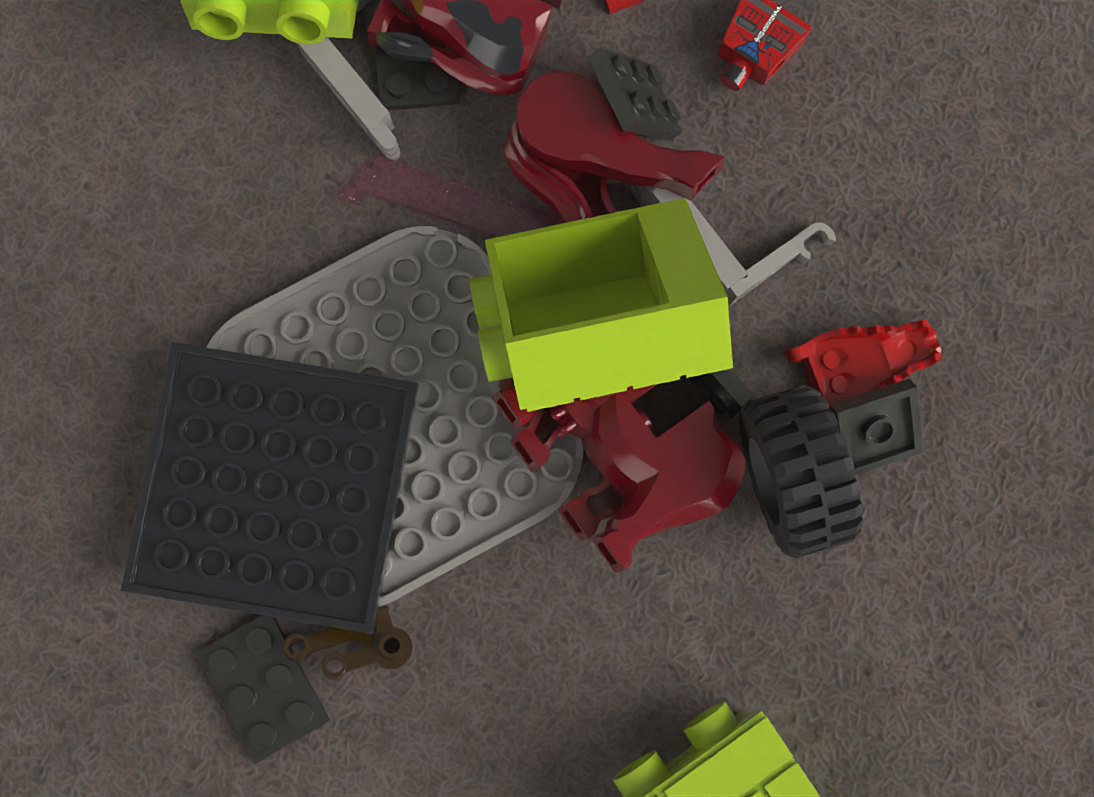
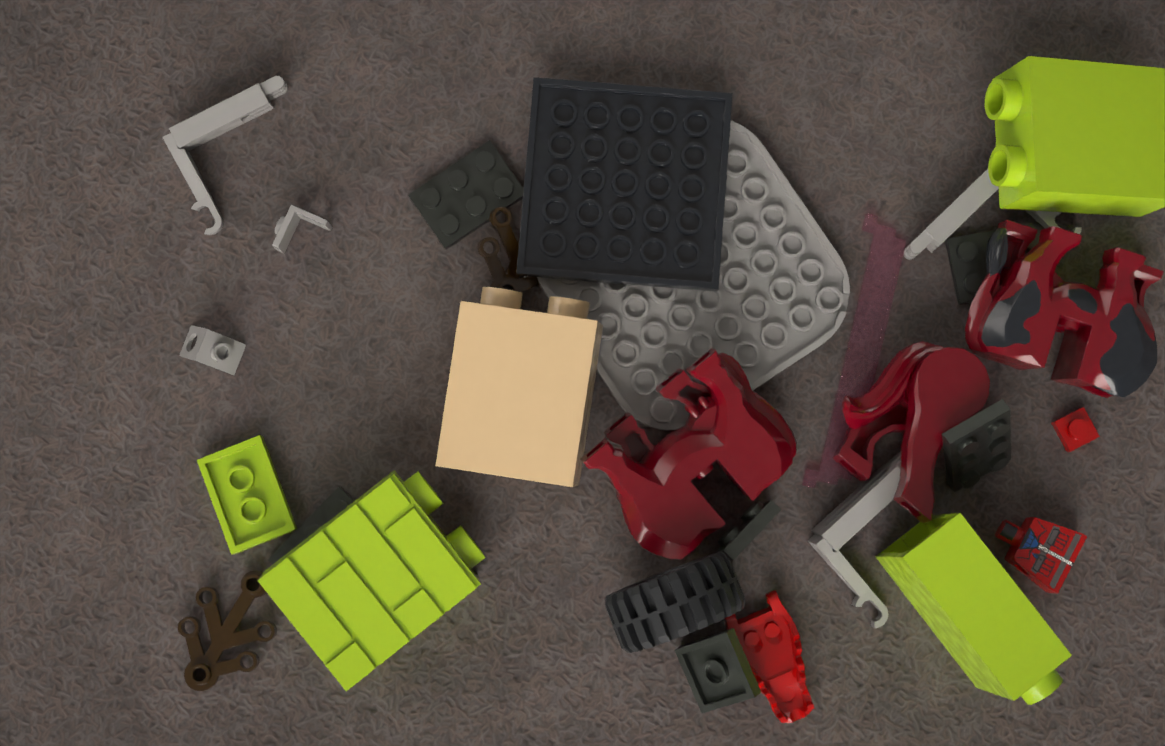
camera: 85 degrees right, 0 degrees up
(521, 642) = (520, 388): none -> tan brick
(602, 306) = (793, 423): lime brick -> none
(832, 115) = (976, 609): none -> lime brick

